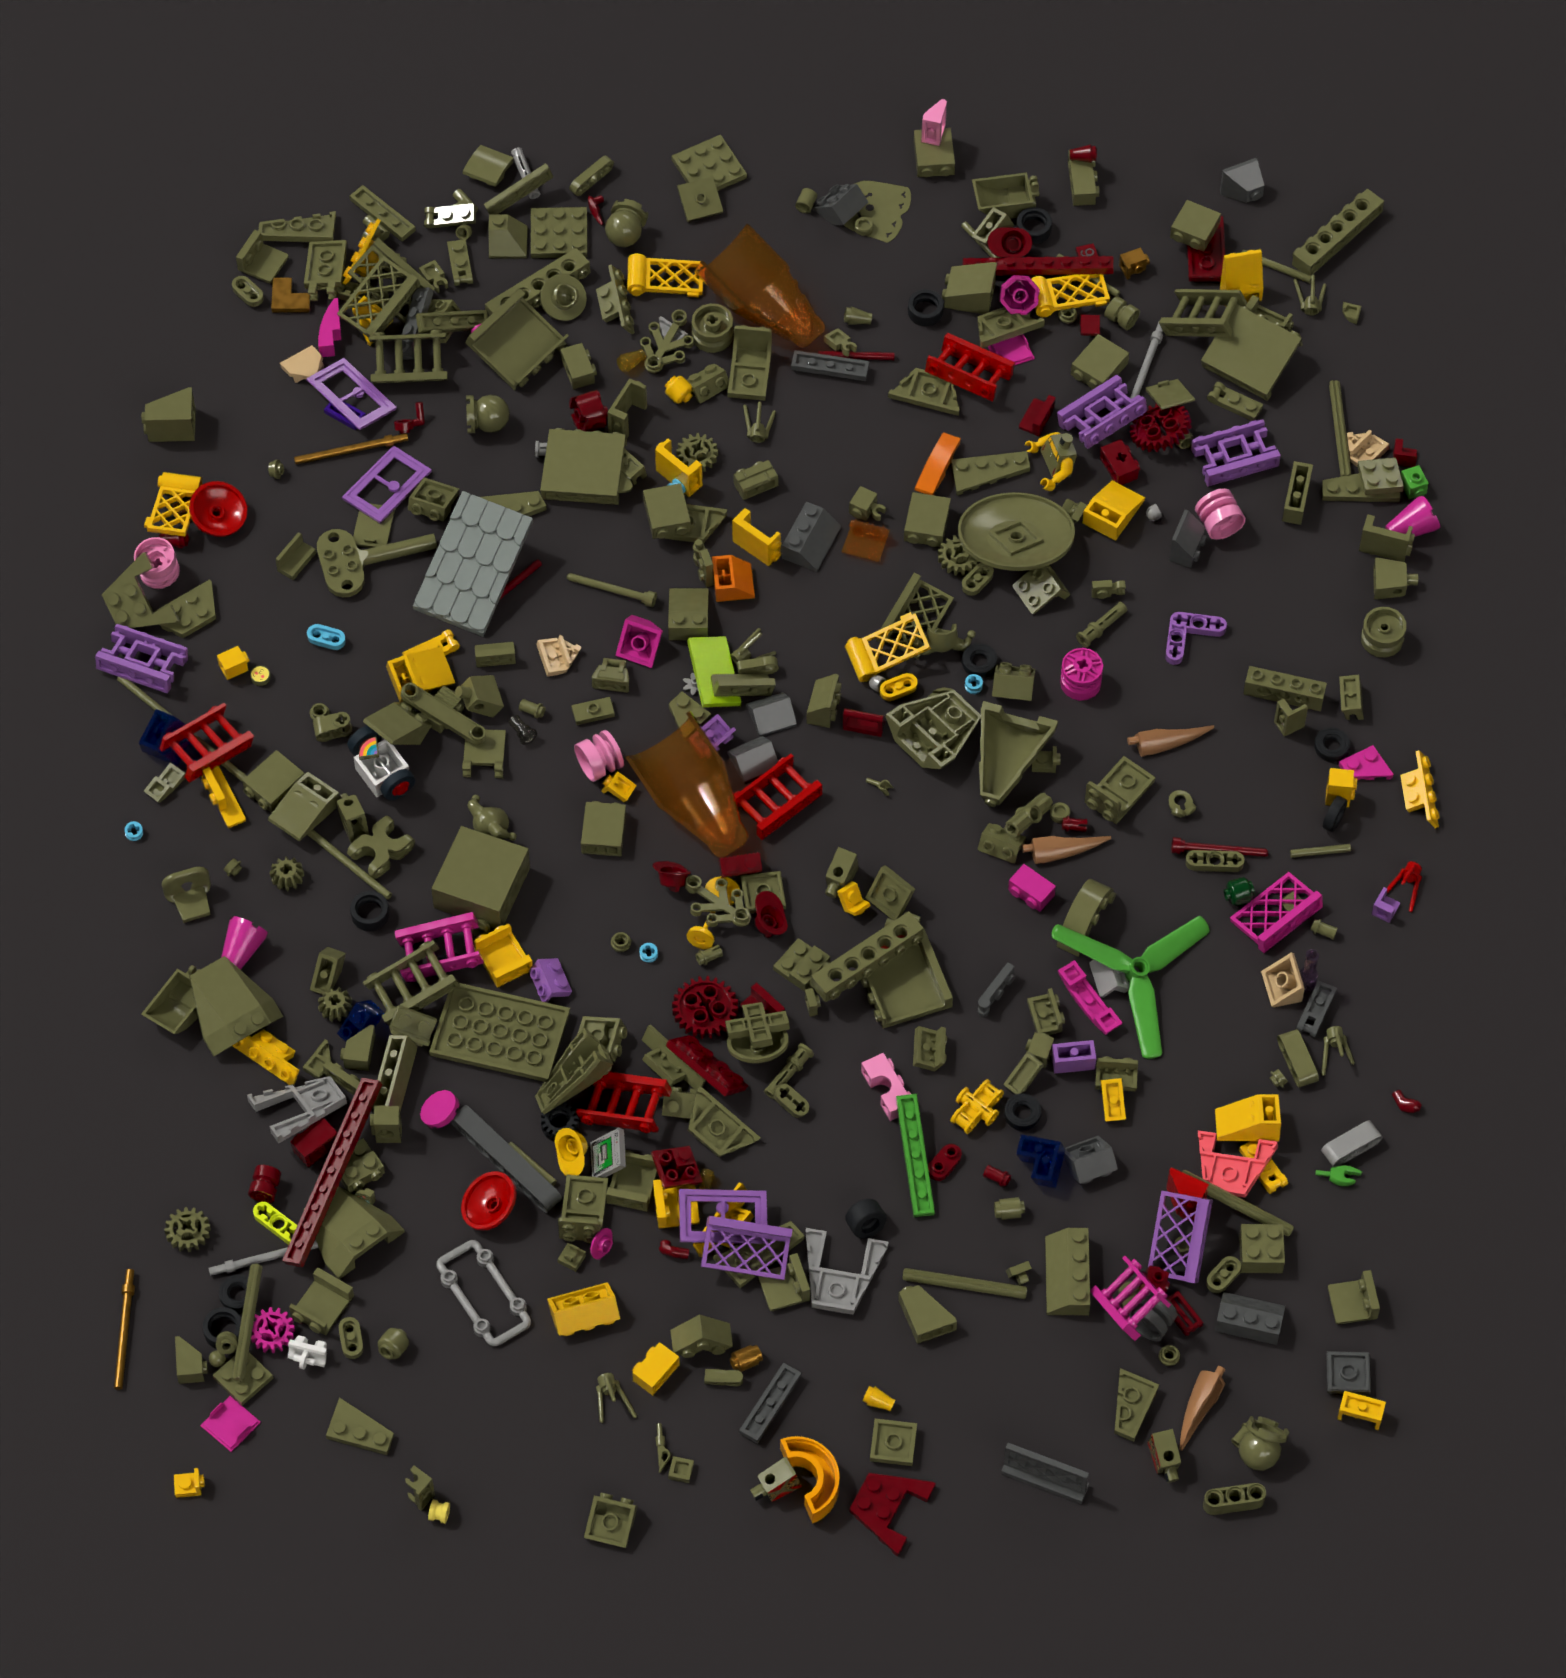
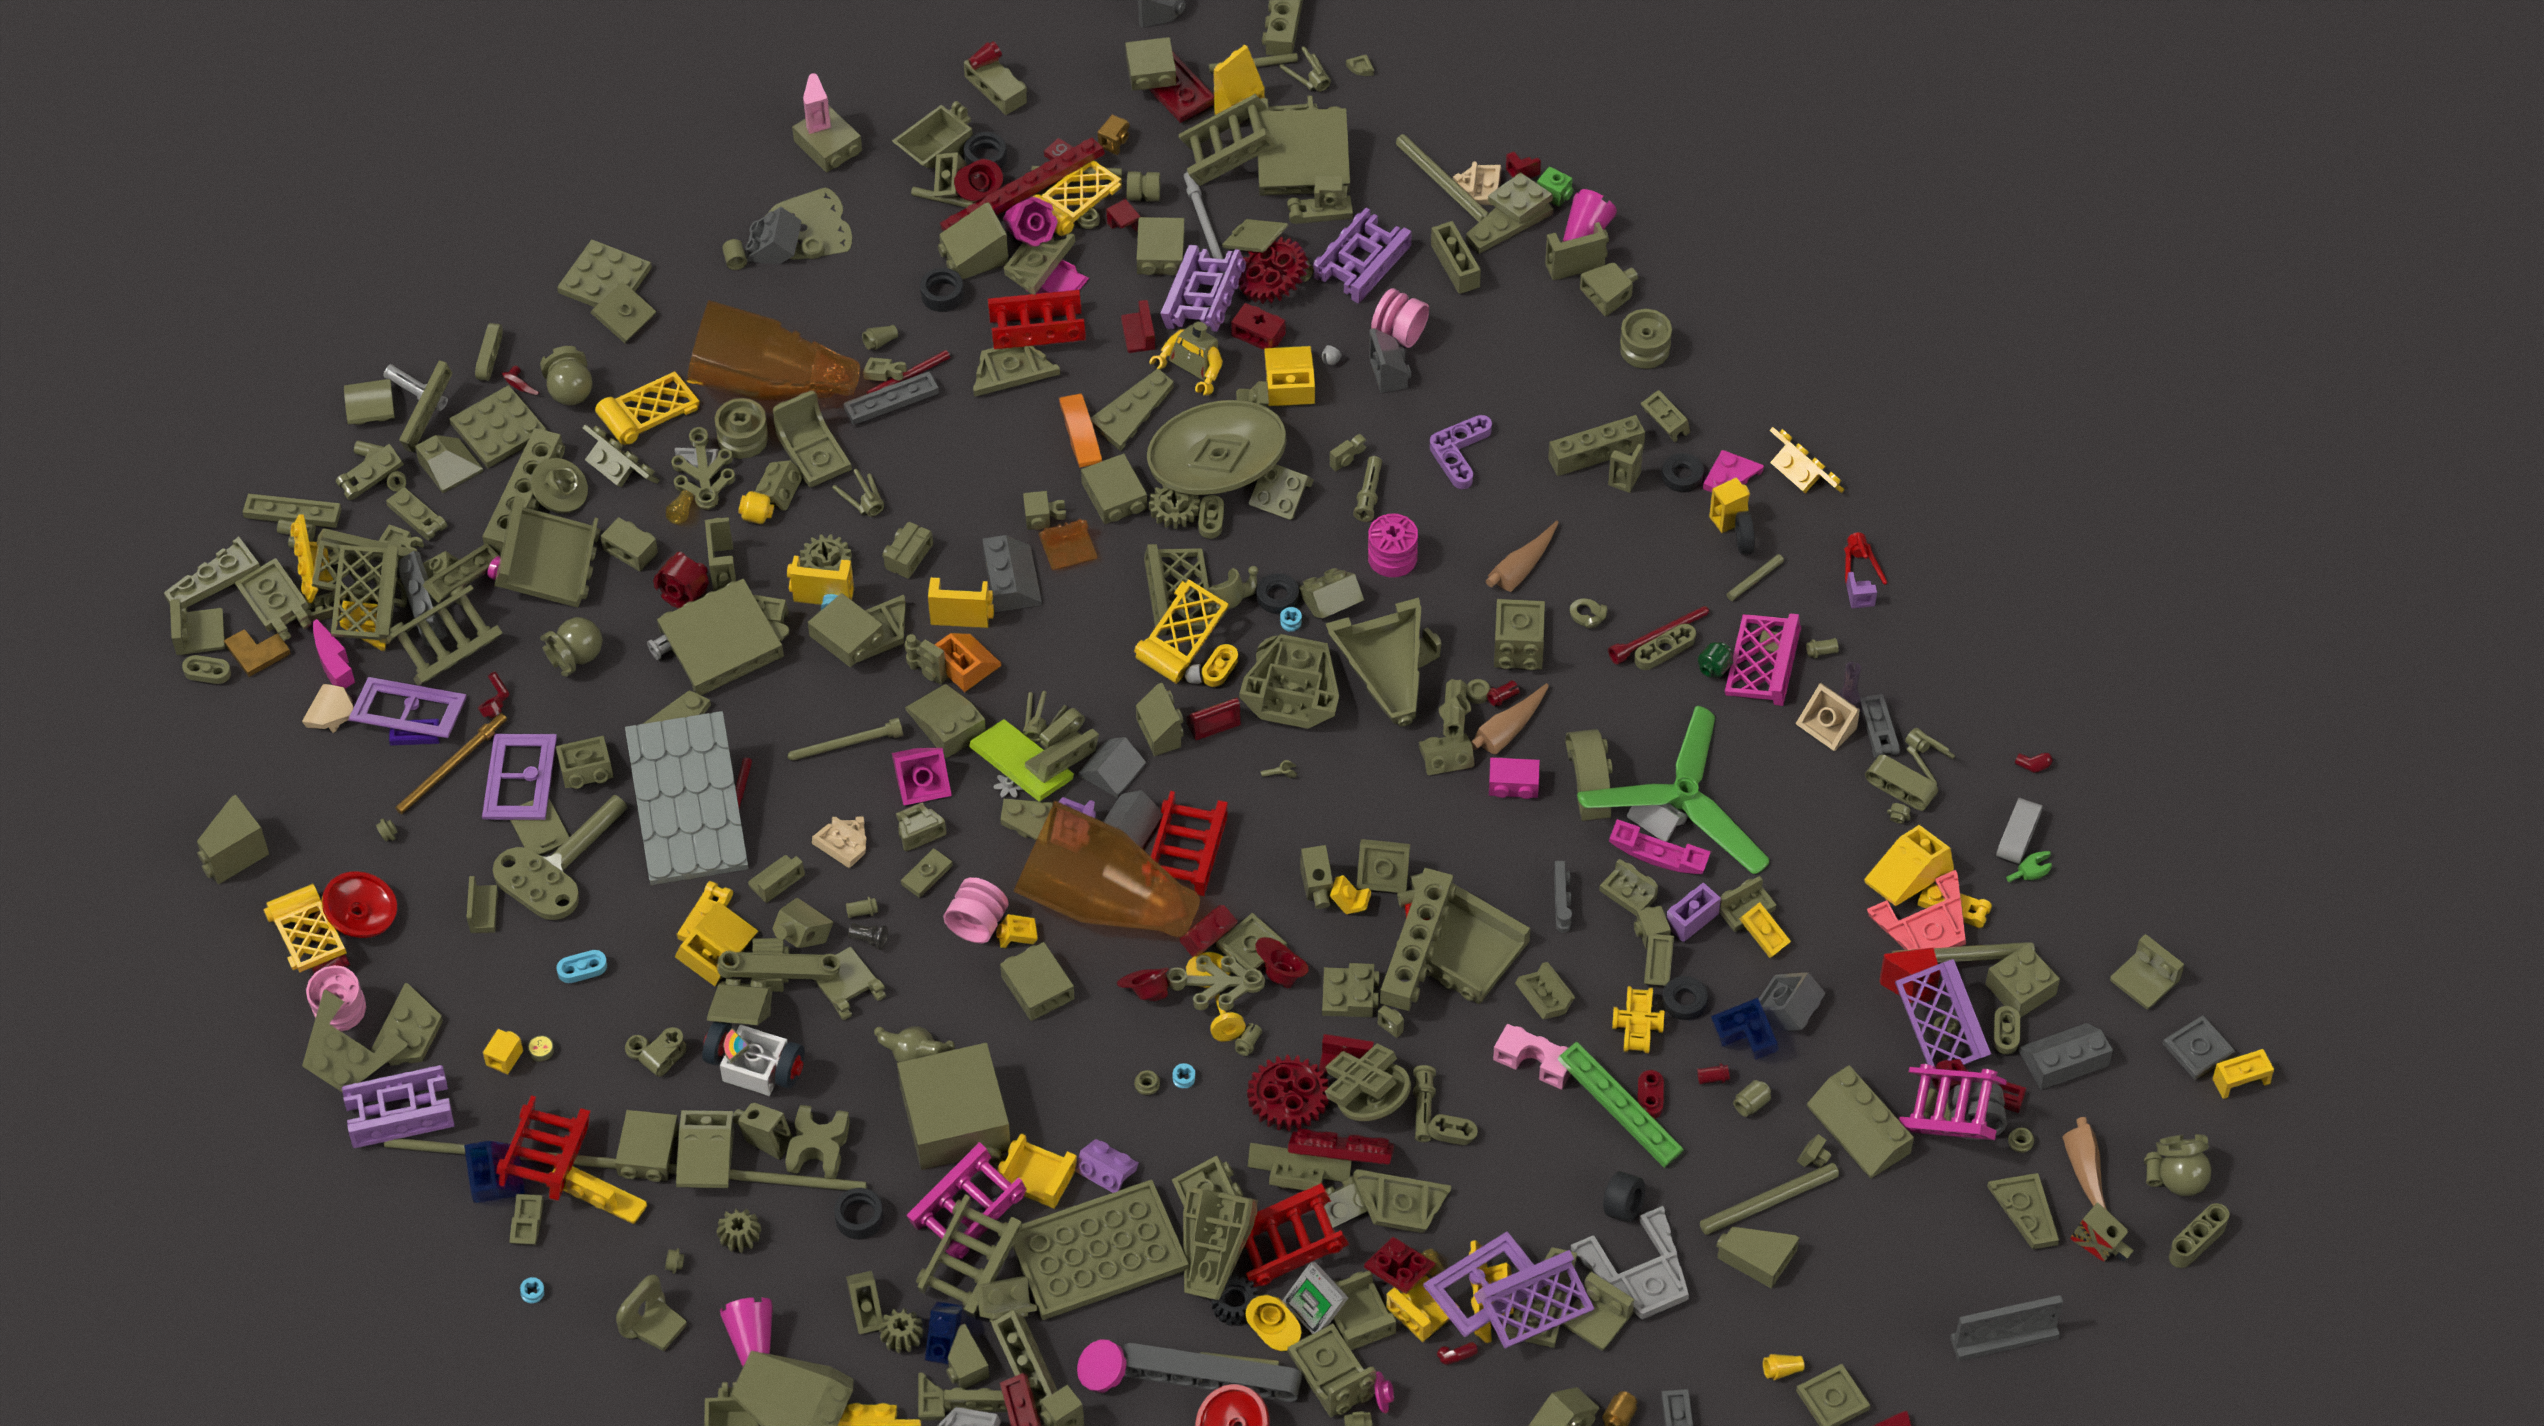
camera: 35 degrees left, 5 degrees down
(1245, 391) = (1329, 190): none -> olive brick

